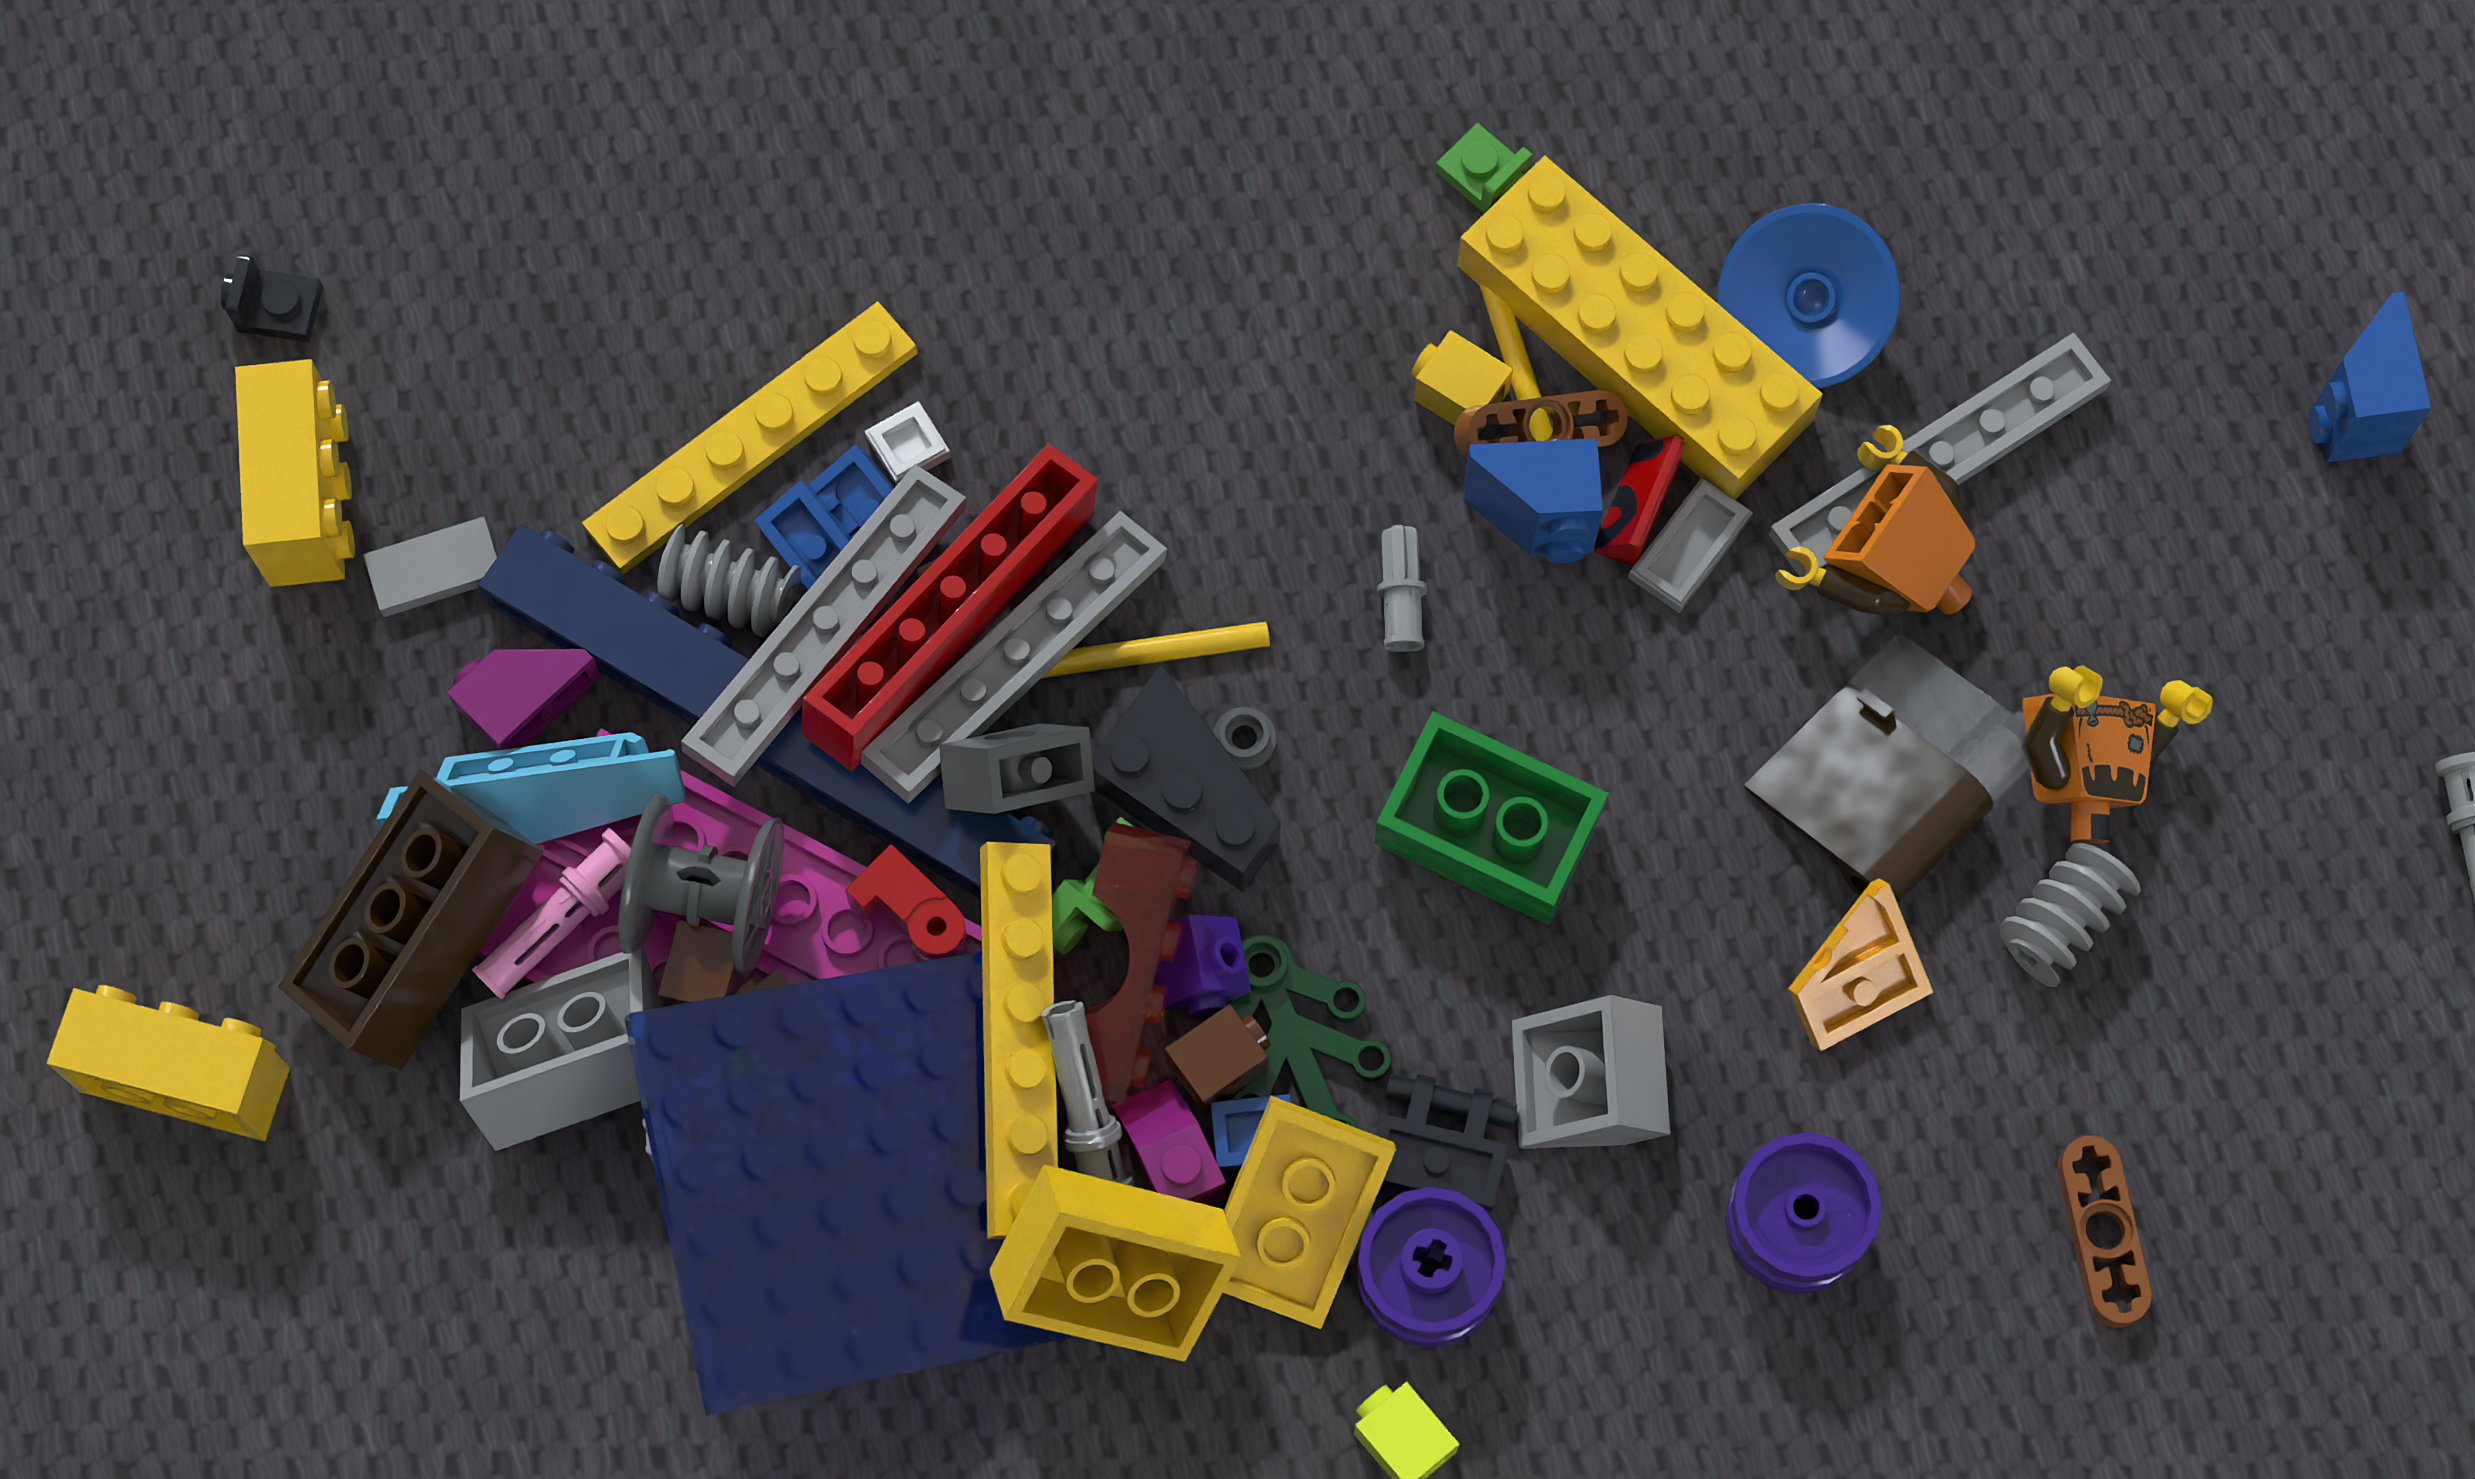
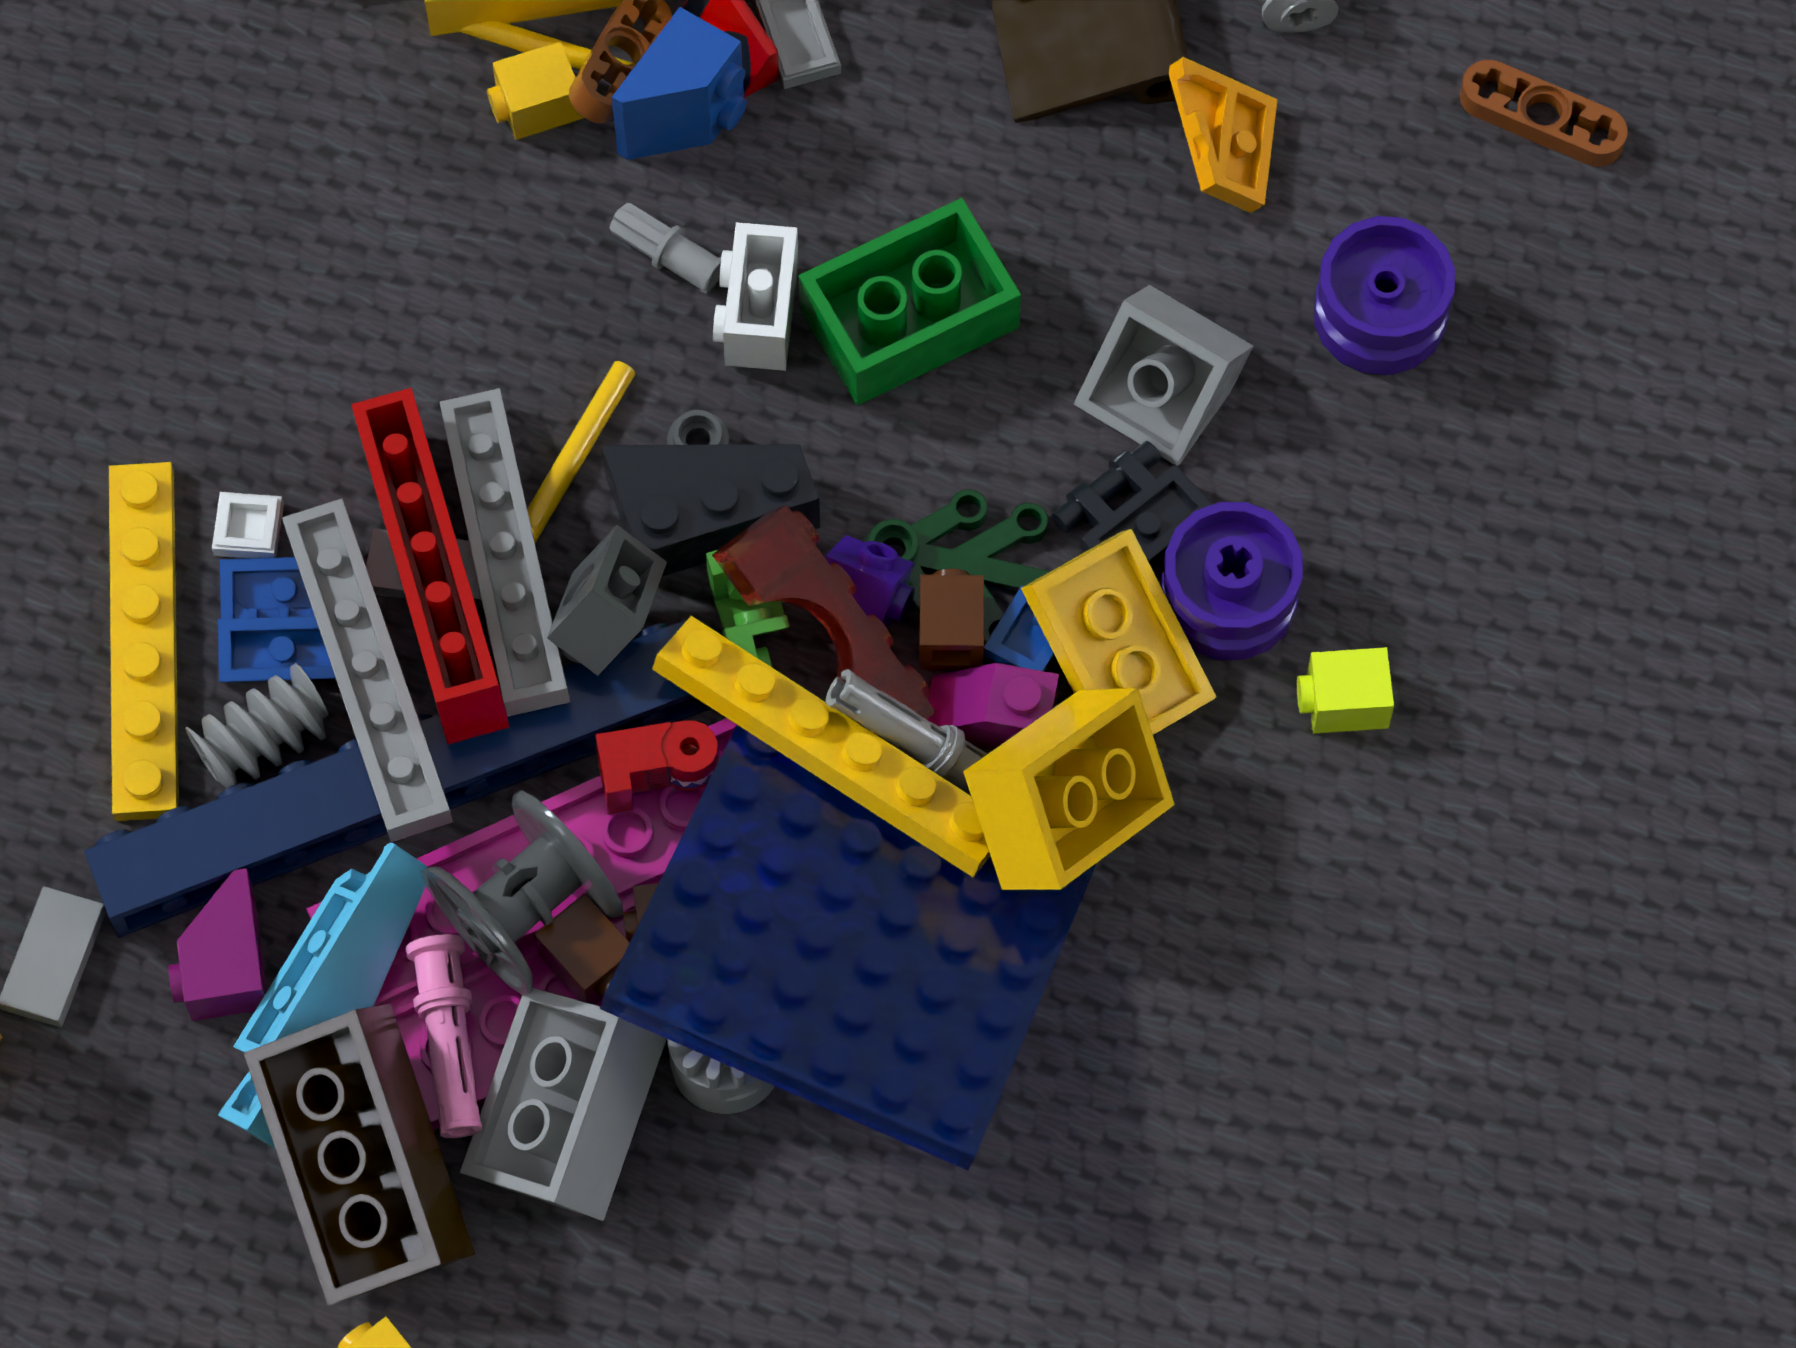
camera: 55 degrees left, 5 degrees down
(1397, 695) = (759, 296): none -> white brick

